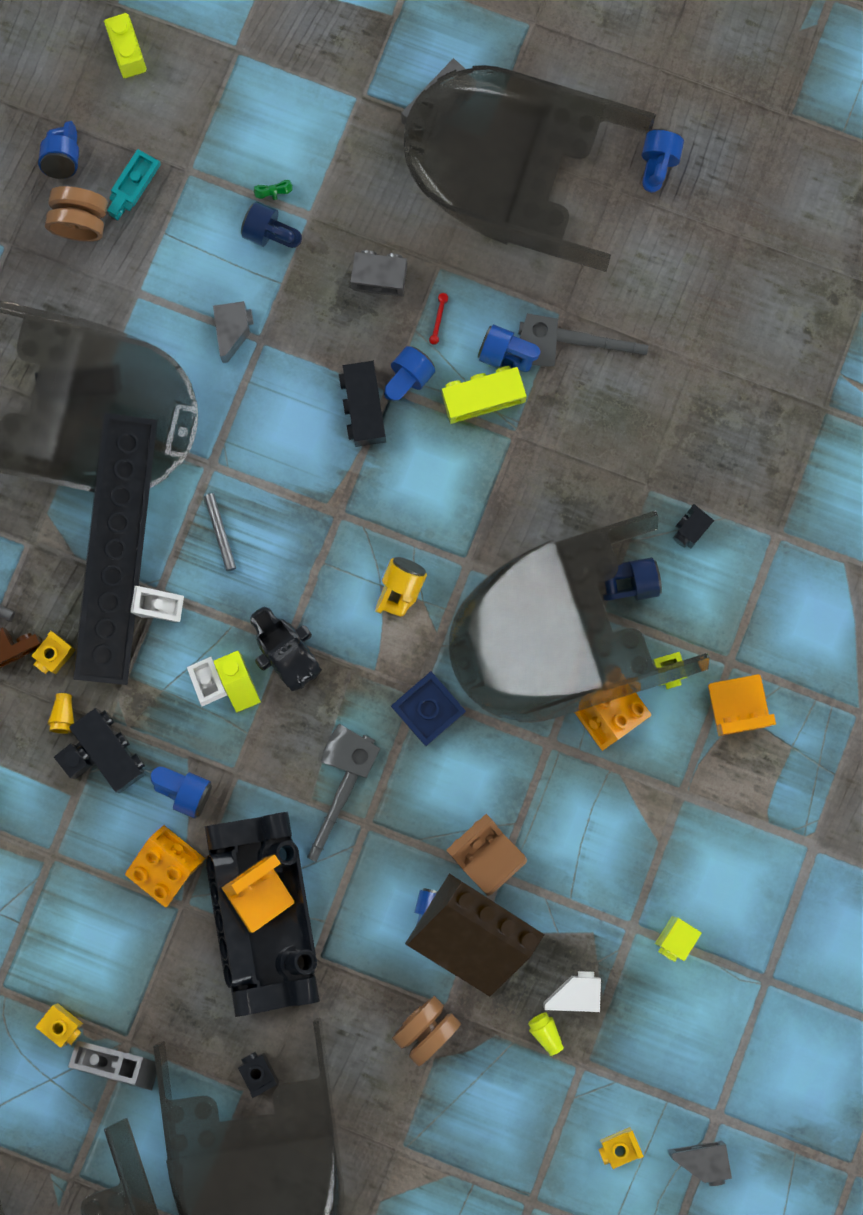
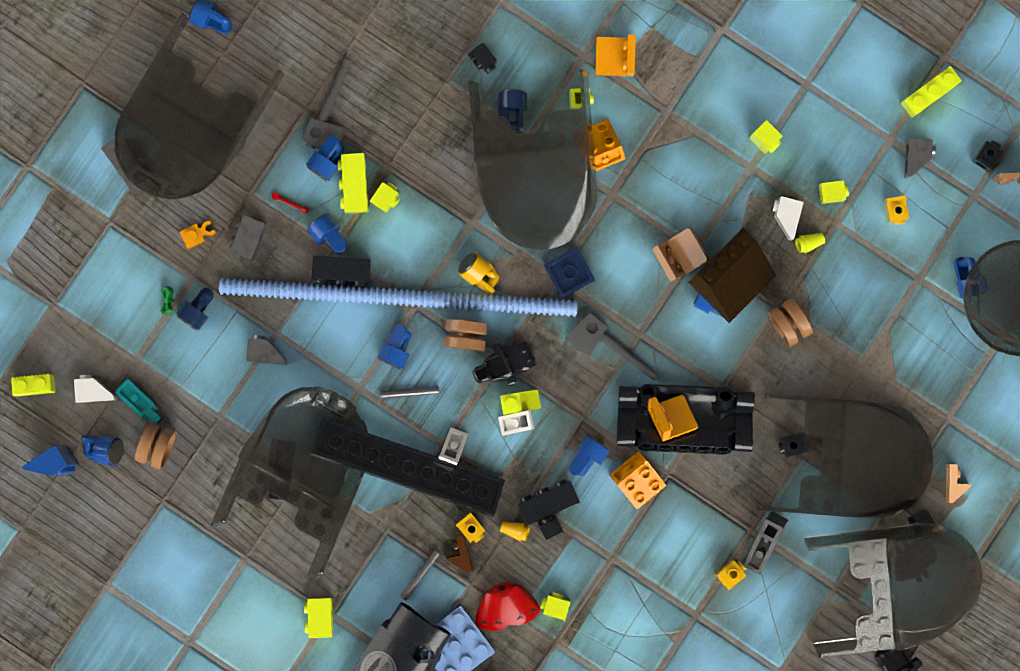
camera: 75 degrees left, 5 degrees up
(25, 88) = (54, 461): none -> blue slope
(134, 120) = (91, 390): none -> white slope
(269, 498) = (394, 350): none -> blue piece
(310, 585) = (465, 334): none -> medium nougat wheel
(344, 489) = (397, 297): none -> light blue piece
(368, 206) = (194, 235): none -> light orange plate
(474, 439) = (385, 197): none -> neon yellow brick
(624, 1051) = (833, 192): none -> neon yellow brick
(798, 1161) = (931, 92): none -> neon yellow brick

